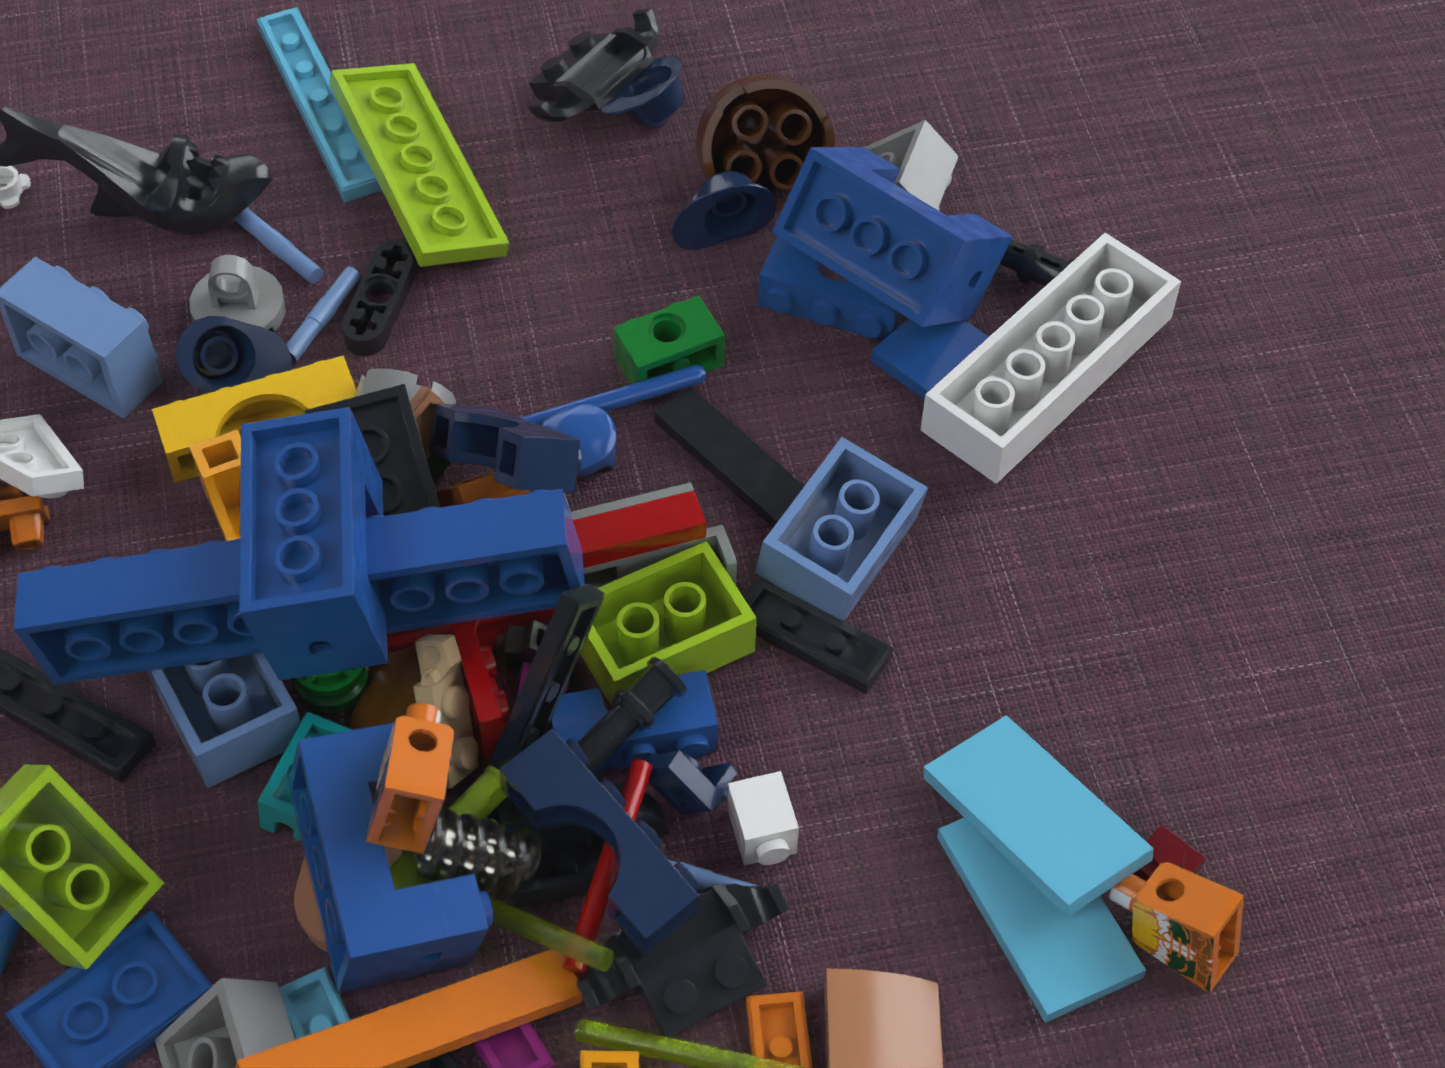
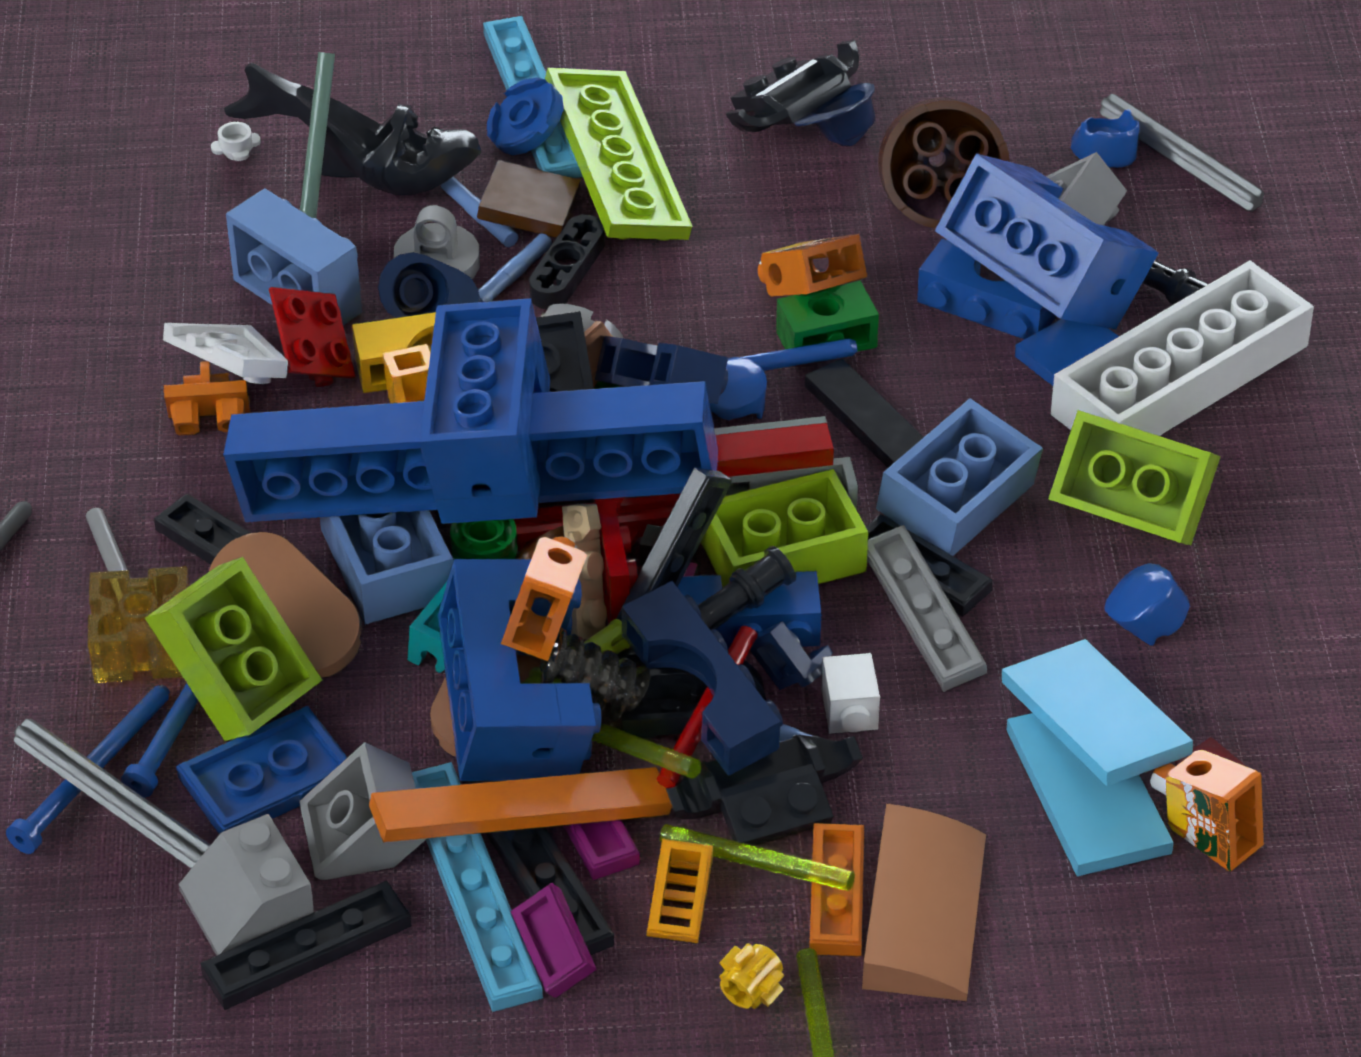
camera: 10 degrees right, 10 degrees down
(88, 184) = (317, 133): none -> sand green bar
(107, 428) = (312, 334): none -> red hinge
(118, 774) = (305, 598): none -> nougat tile
(314, 128) = (525, 116): none -> blue tile
(329, 226) = (528, 199): none -> tile
(625, 292) = (792, 268): none -> orange torso
(723, 210) = (895, 217): dark blue piece -> none
(827, 696) = (924, 609): none -> light grey tile
(926, 96) = (1111, 138): none -> blue hair
(1003, 102) = (1187, 155): none -> axle
(1029, 511) = (1134, 477): none -> lime brick
(1065, 660) = (1148, 603): none -> blue hair

